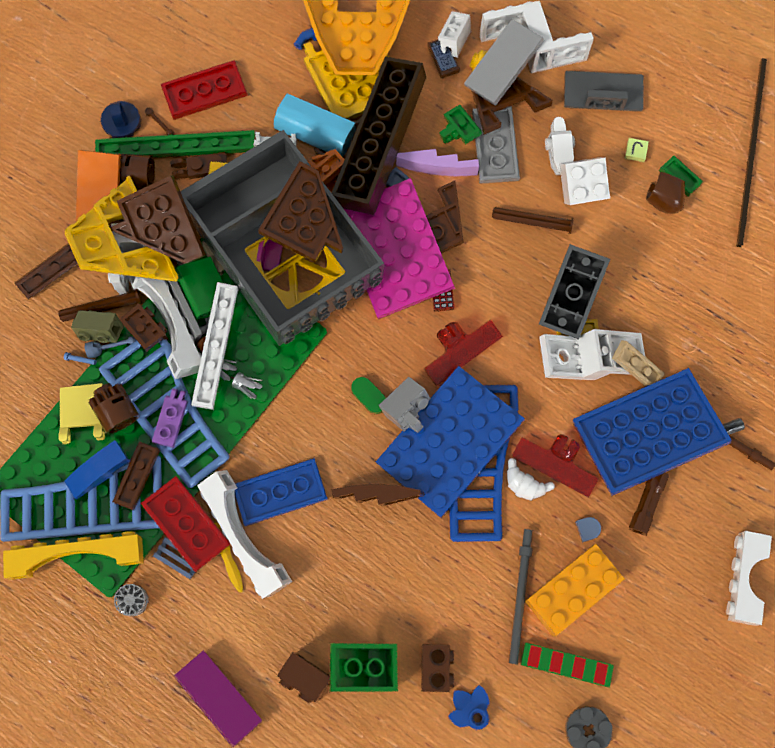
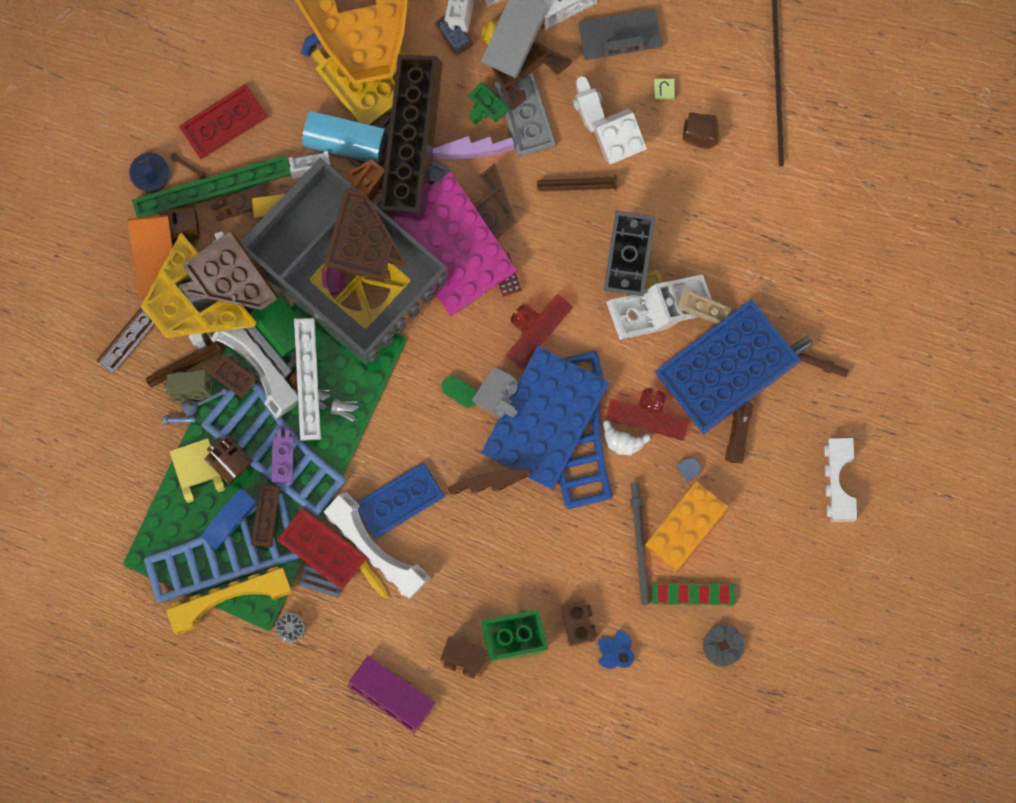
camera: 10 degrees left, 5 degrees up
(678, 169) = (712, 105): green tile -> none

